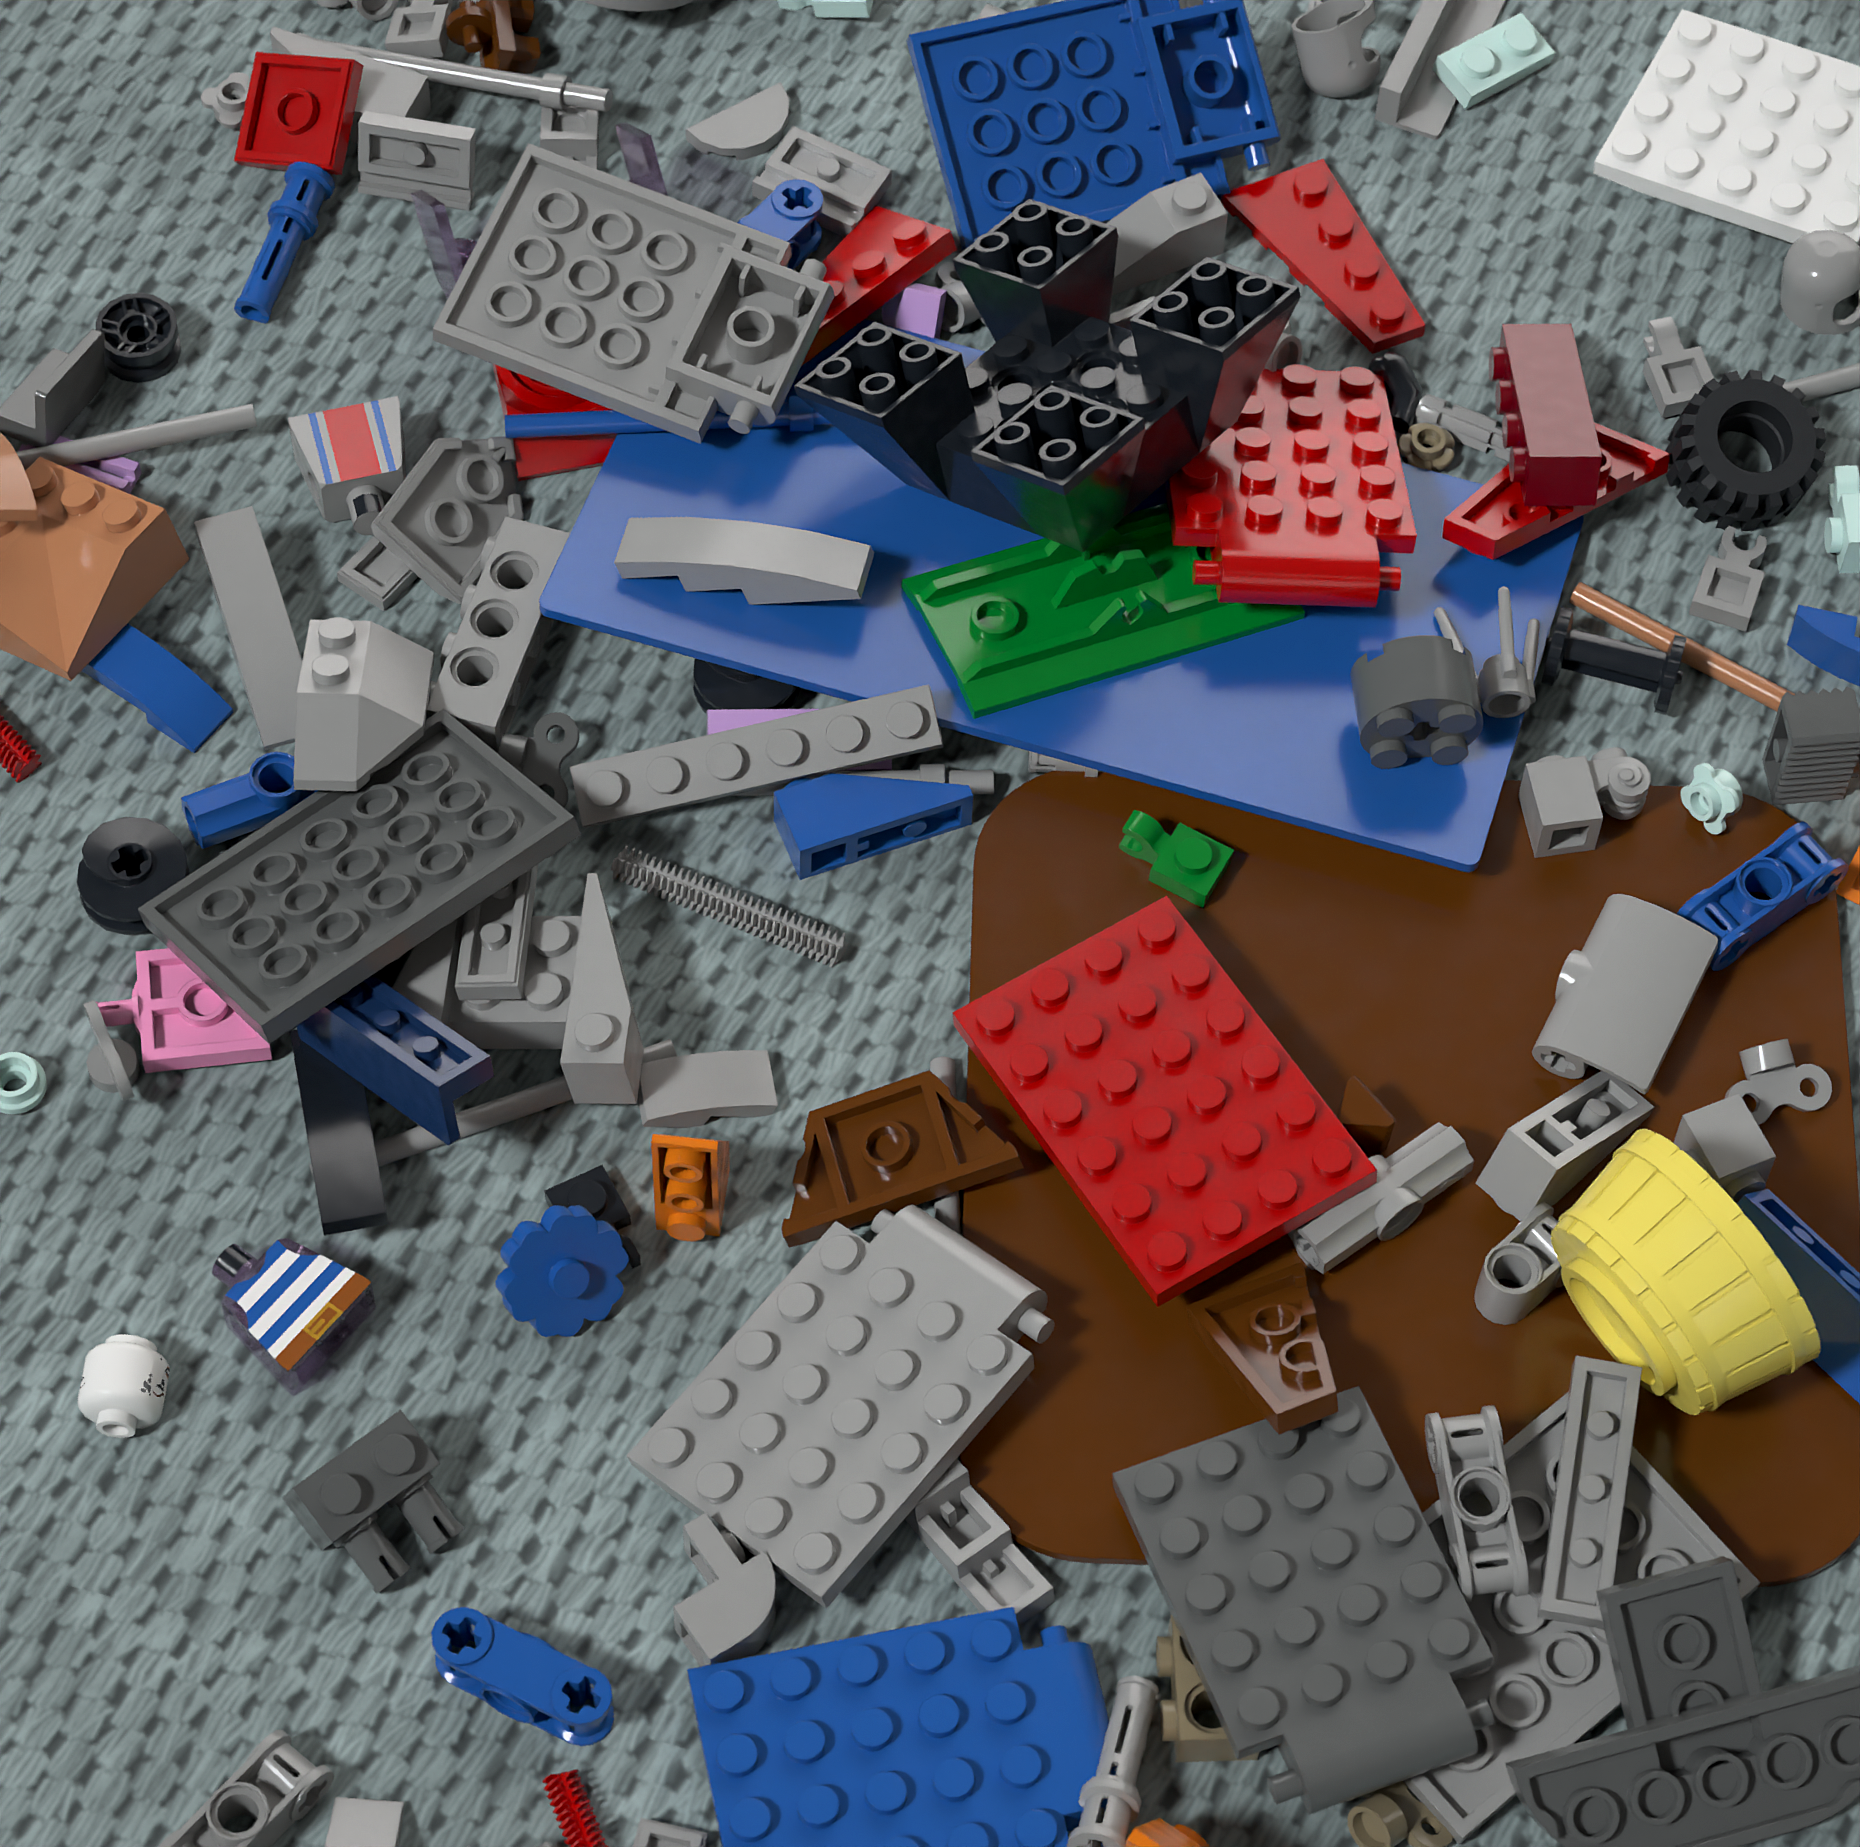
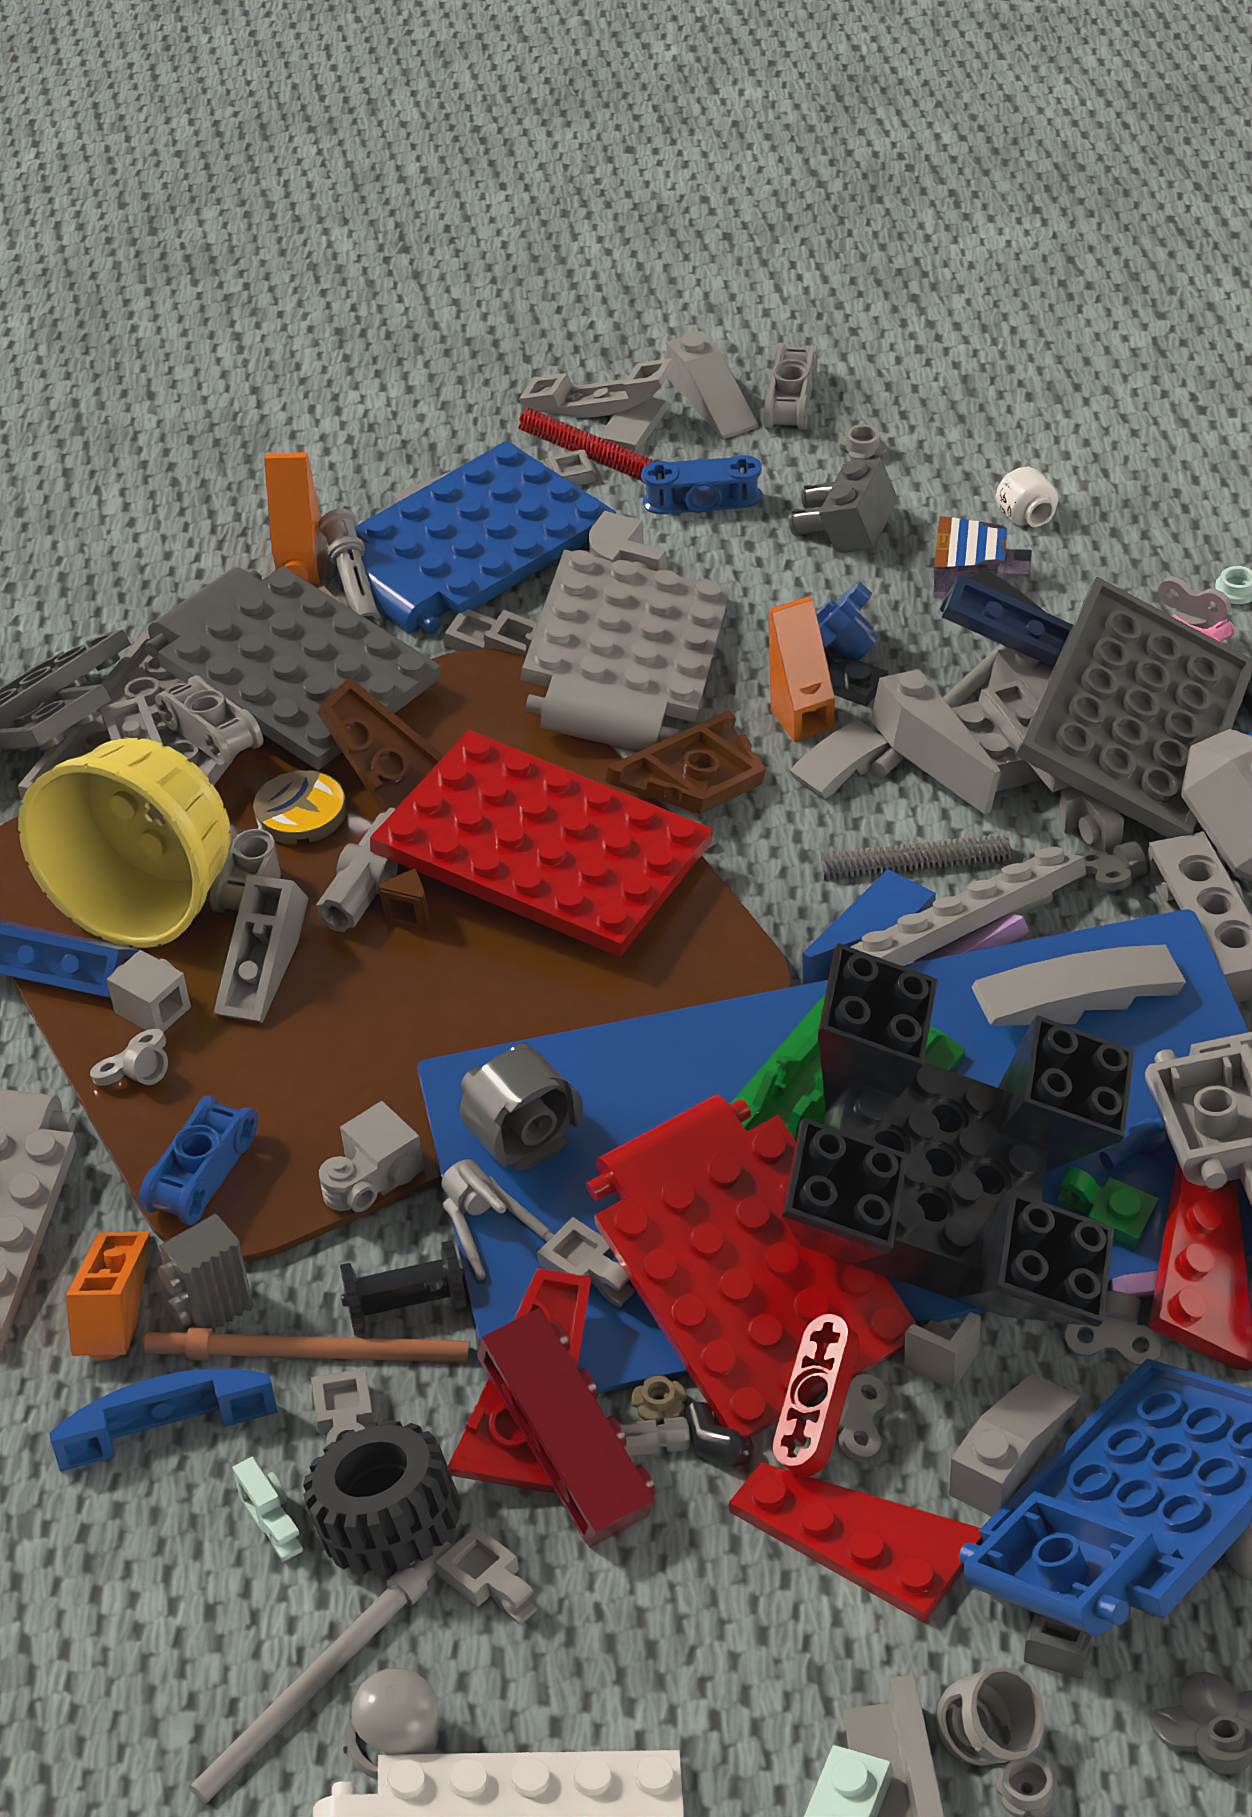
camera: 155 degrees right, 15 degrees down
(233, 1629) = (862, 442): none -> light grey plate
(1183, 862) = (636, 997): green plate -> none
(1323, 336) = (824, 1418): none -> red beam
(1407, 1364) = (300, 806): none -> tile
(1435, 570) = (585, 1253): none -> light grey plate
(1625, 993) = (267, 1041): light grey panel -> none
(1712, 797) = (269, 1211): light aqua plate -> none

